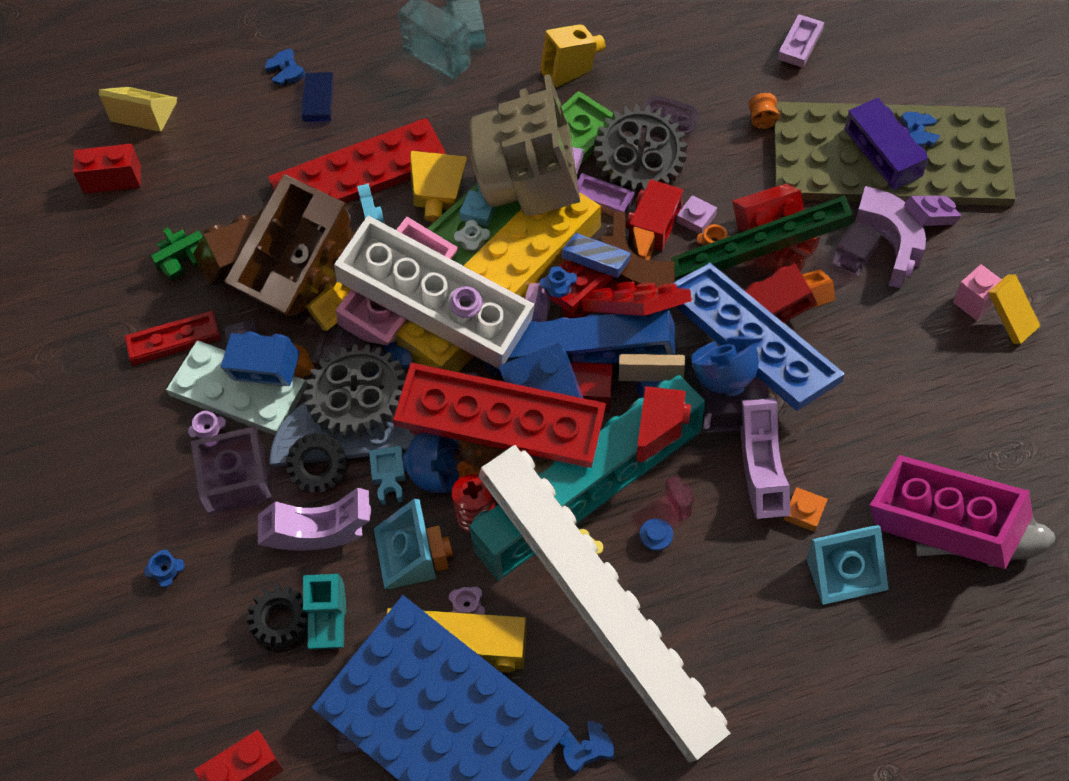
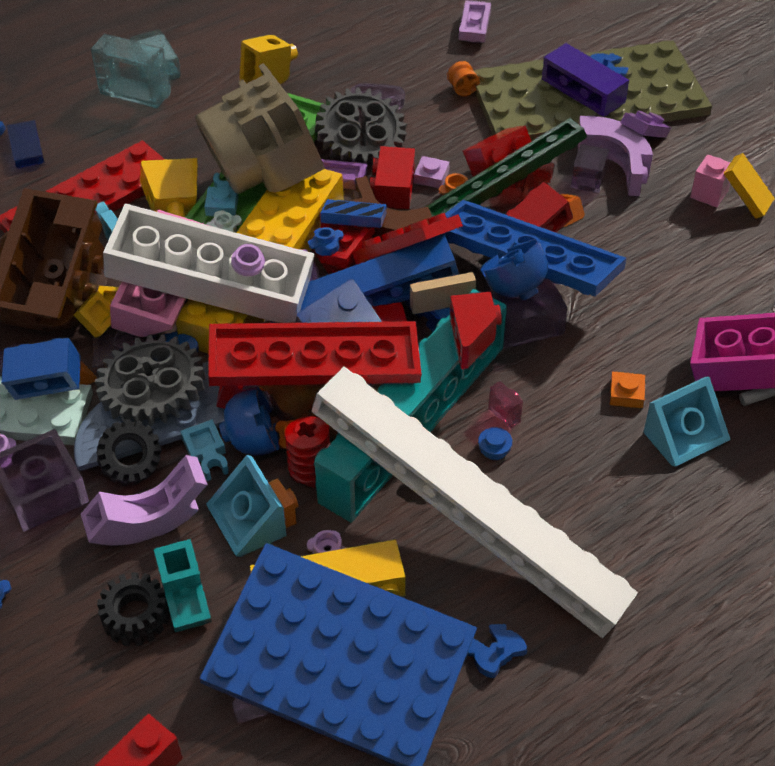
camera: 20 degrees left, 10 degrees down
(643, 243) = (391, 196): orange slope -> none
(761, 458) = (577, 365): lavender arch -> none

